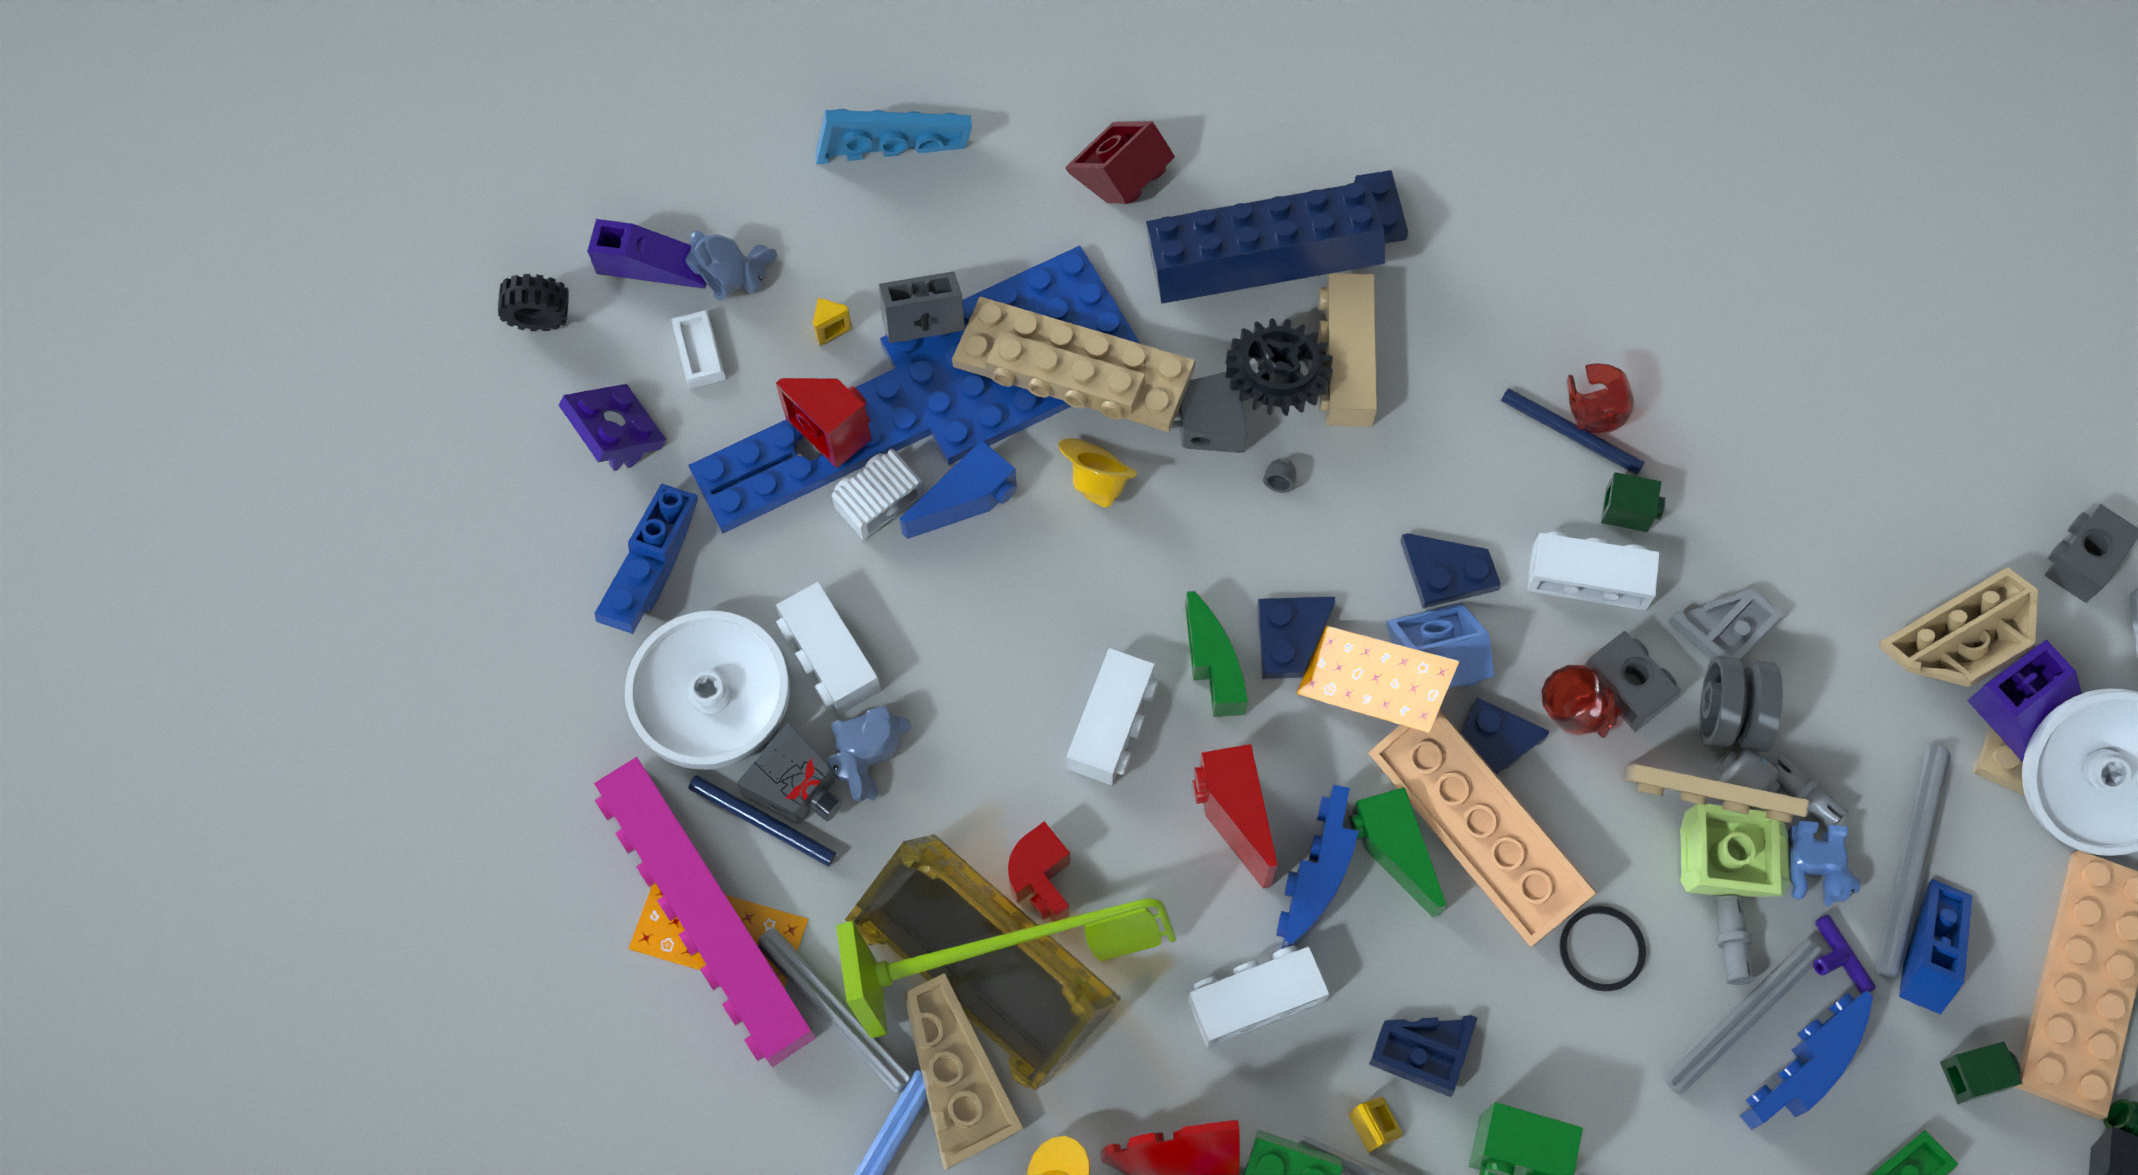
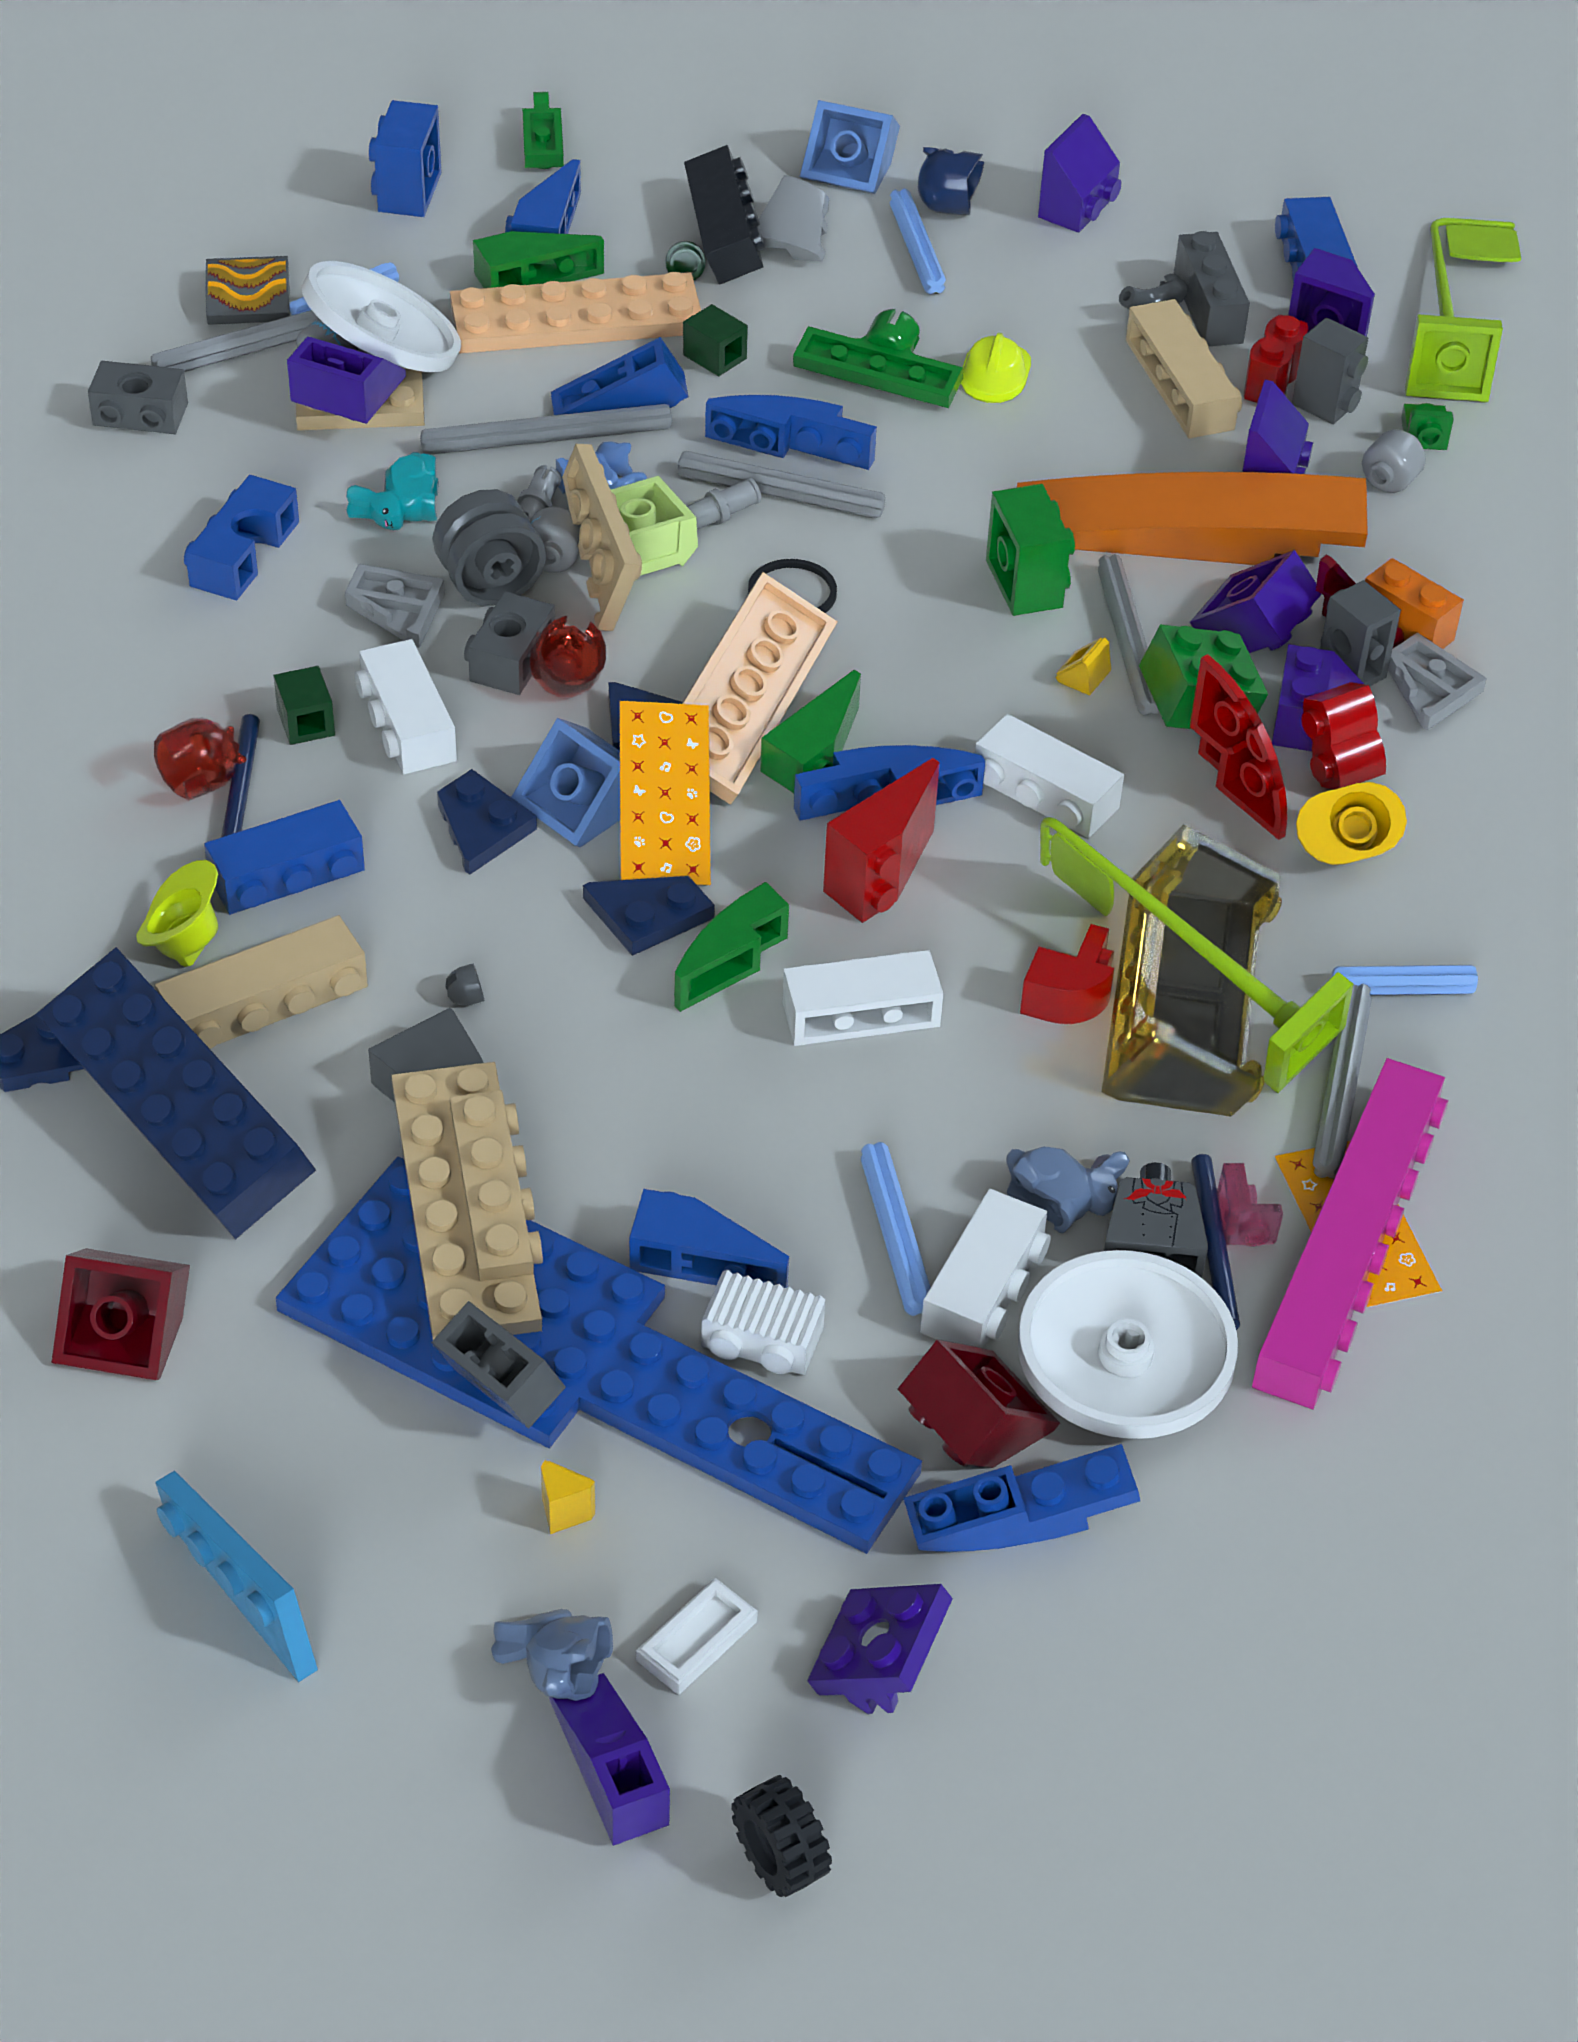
camera: 125 degrees left, 20 degrees down
(735, 577) = (975, 1404): none -> dark red slope
(773, 847) = (1242, 1217): none -> clear pink bracket
(826, 415) = (721, 1369): red slope -> none
(906, 624) = (895, 1226): none -> light blue axle
(959, 1081) = (1322, 939): tan wing -> none
(1095, 471) = (582, 1132): yellow piece -> none
(1278, 358) = (352, 1015): black gear -> none
(1424, 1050) = (990, 655): dark blue wing -> none
(1438, 324) = (182, 914): none -> neon yellow piece
(1468, 417) = (285, 856): none -> blue brick
(1841, 956) = (679, 441): dark purple piece -> none
(1847, 522) = (225, 553): none -> blue arch
(1866, 700) = (407, 494): none -> teal animal
(1971, 632) = (298, 429): tan wedge -> none

